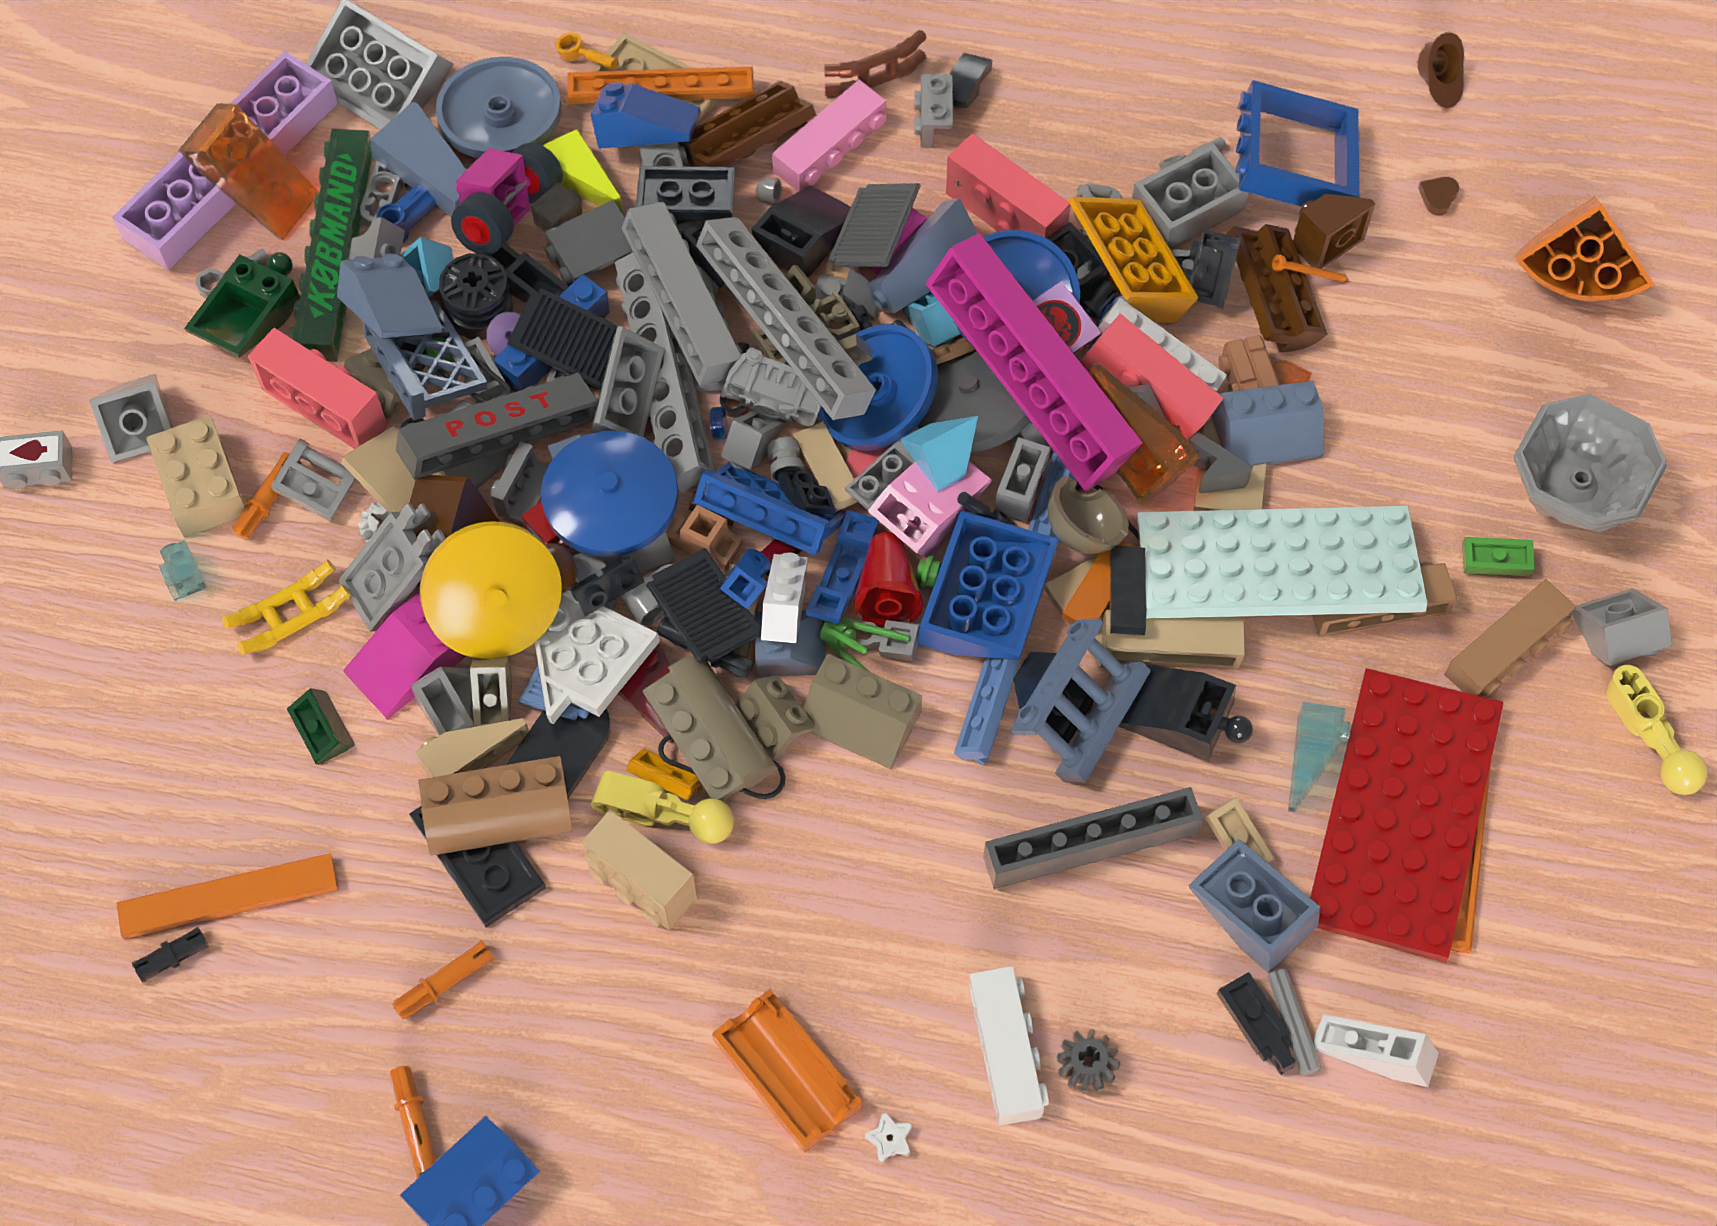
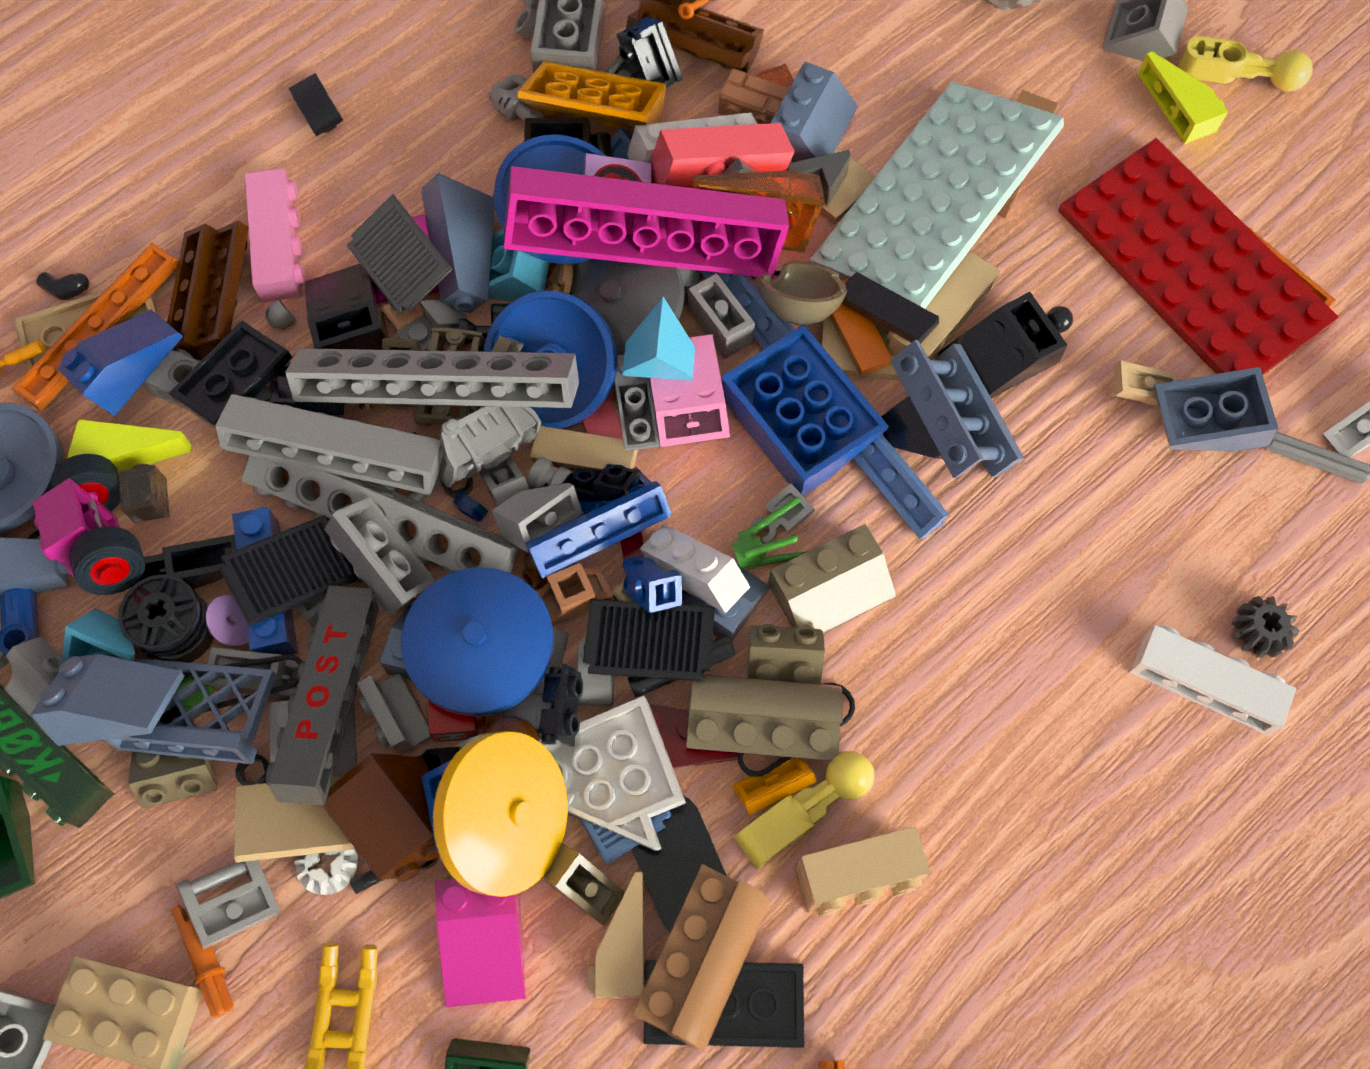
camera: 55 degrees left, 5 degrees up
(317, 389) = (136, 831): coral brick -> none
(390, 565) = (387, 889): light grey tile -> none
(446, 698) = (559, 929): light grey slope -> none
(588, 242) = (202, 489): dark grey panel -> none
(676, 43) = (64, 287): none -> black arm
(742, 462) = (536, 513): none -> light grey slope
(787, 1071) = (1120, 872): orange gear -> none
(844, 569) = (689, 505): blue slope -> none
(887, 583) = (732, 478): red cone -> none
(888, 1148) = (1223, 832): white plate -> none
(889, 57) = (251, 138): copper piece -> none
(928, 572) = (744, 443): bright green plate -> none
(935, 106) = (321, 141): light grey bracket -> none
(982, 509) = (732, 360): black piece -> none
(1002, 191) = (457, 144): coral brick -> none
(1092, 837) = (1077, 489): dark grey brick -> none
(1258, 1021) = (1305, 481): black hinge -> none
(1316, 743) = (1105, 283): clear light blue slope -> none
(1498, 556) = (1032, 59): bright green plate -> none
(1511, 640) = (1109, 99): medium nougat brick -> none
(1569, 705) = (1183, 99): none -> neon yellow slope

